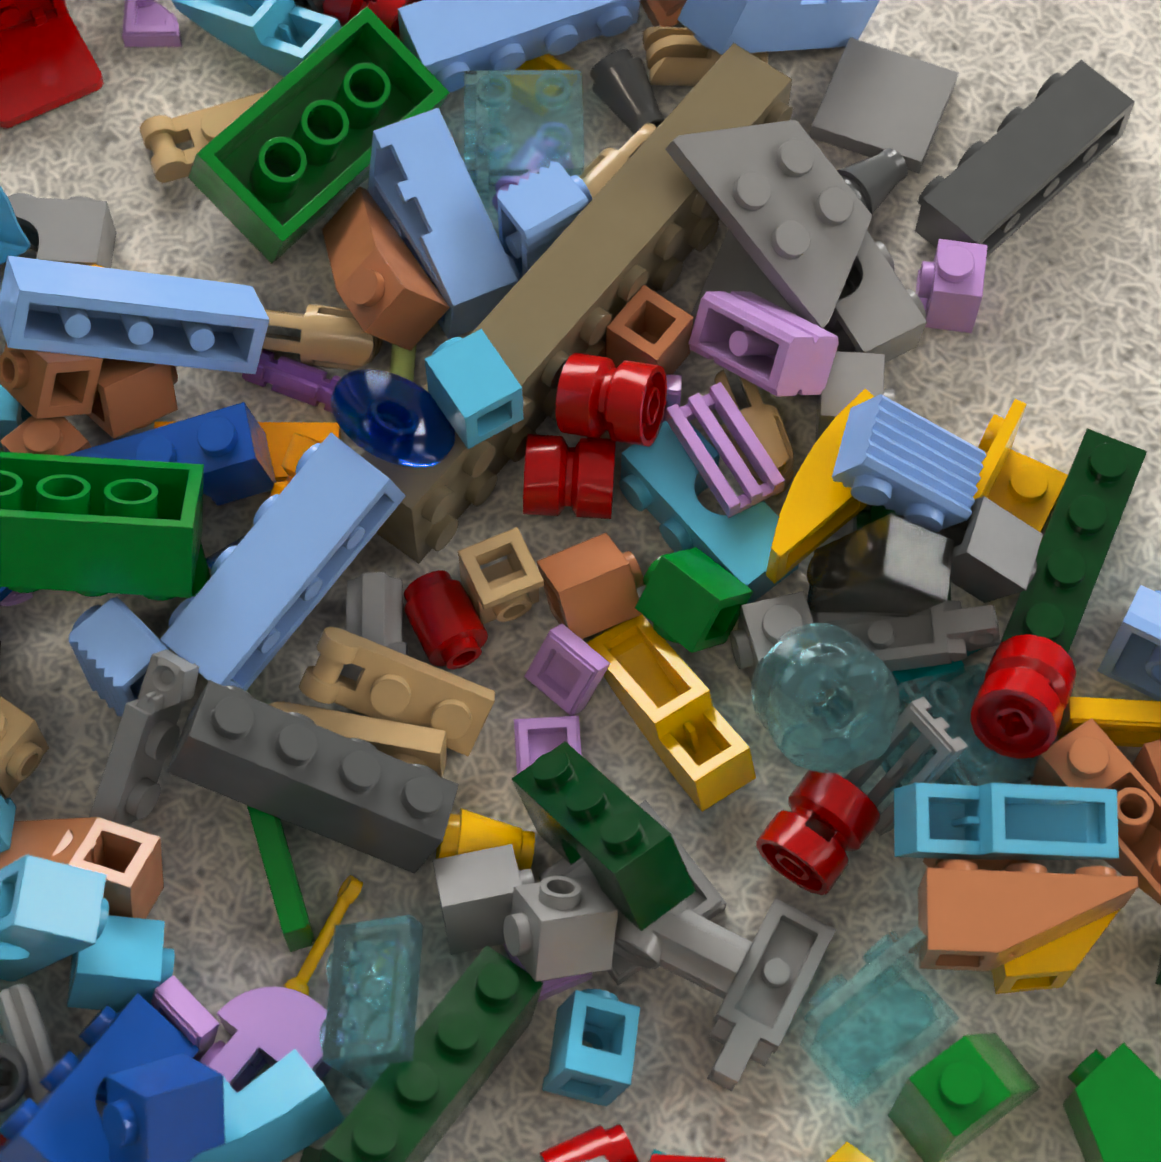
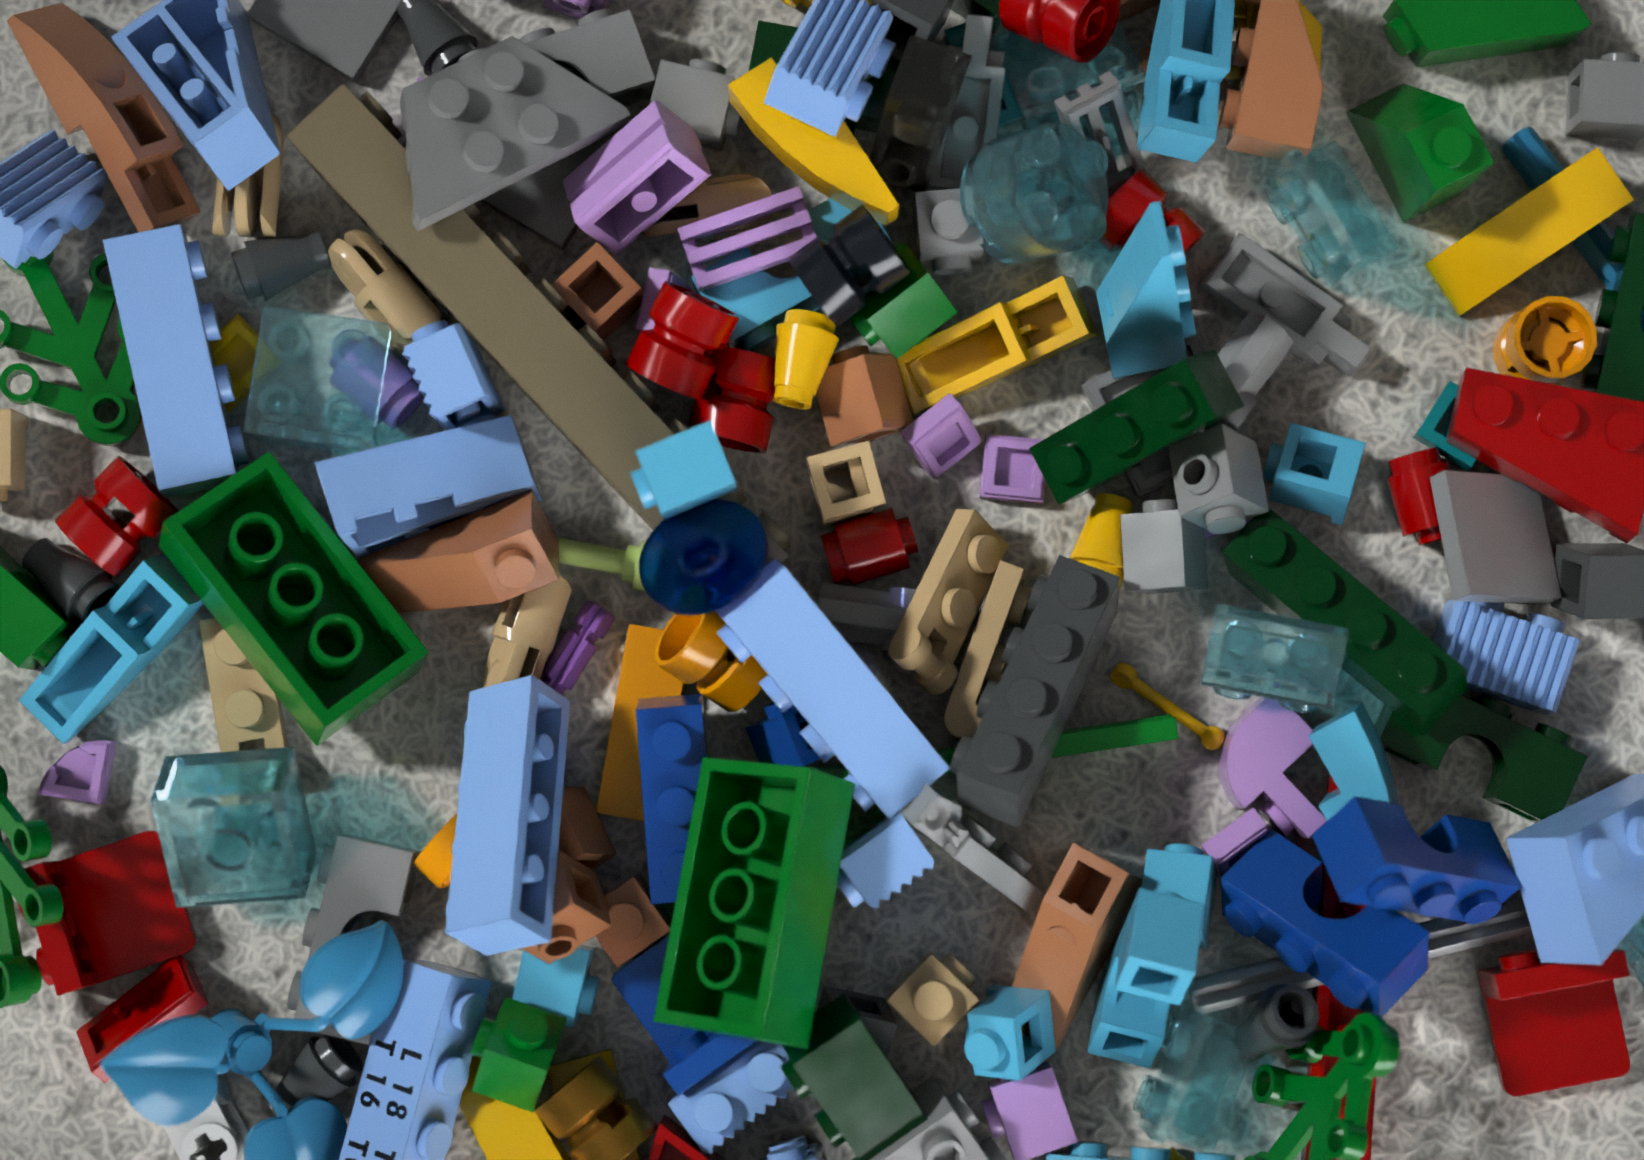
camera: 80 degrees left, 20 degrees up
(105, 119) = (234, 827): none -> clear light blue brick
(617, 513) = (802, 356): none -> yellow cone
(713, 529) = (849, 265): none -> black wheel
(735, 826) = (1147, 299): none -> medium azure slope

